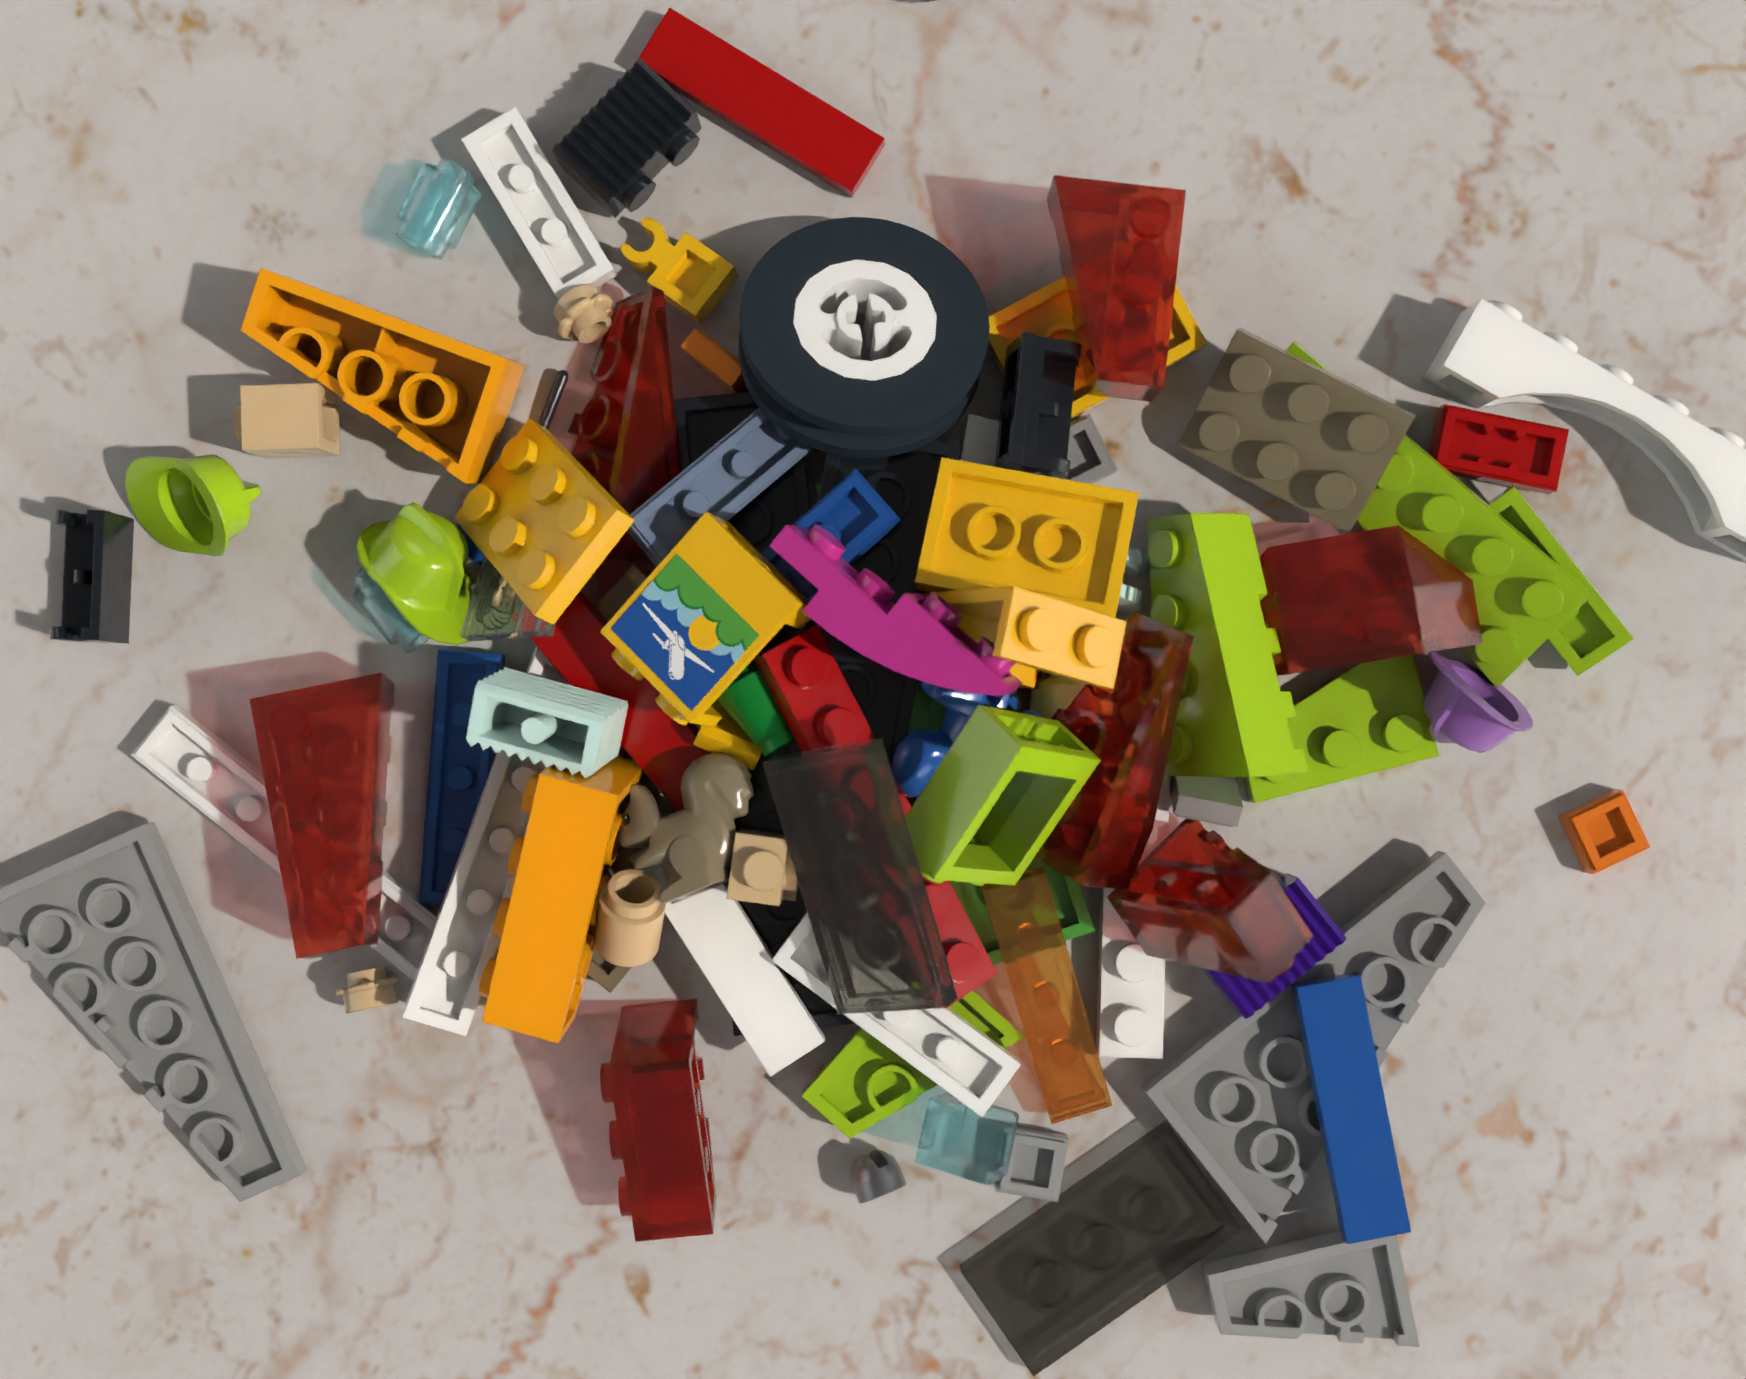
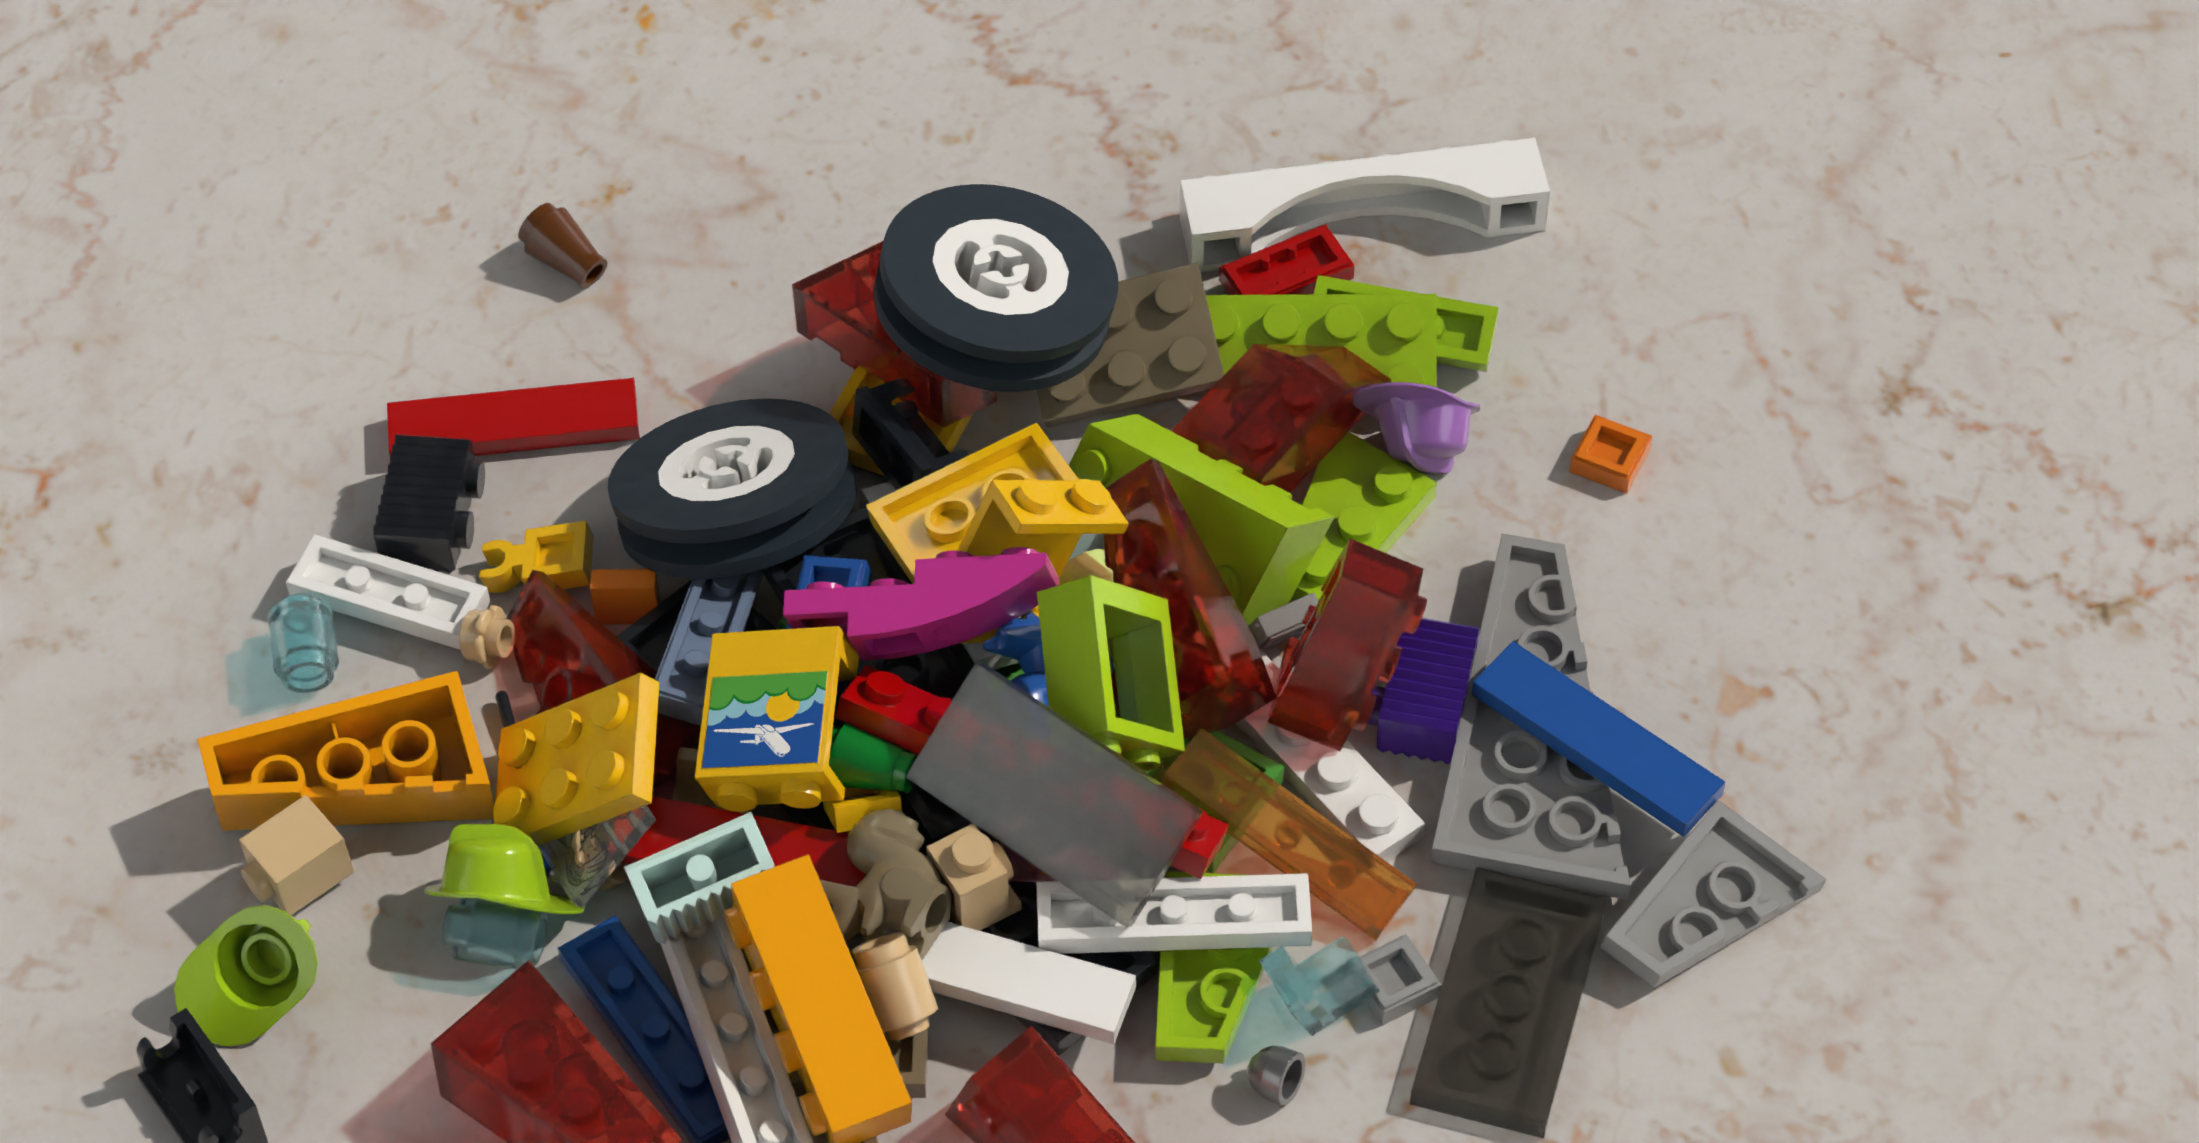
camera: 40 degrees left, 35 degrees down
(1249, 274) = (995, 287): none -> black wheel

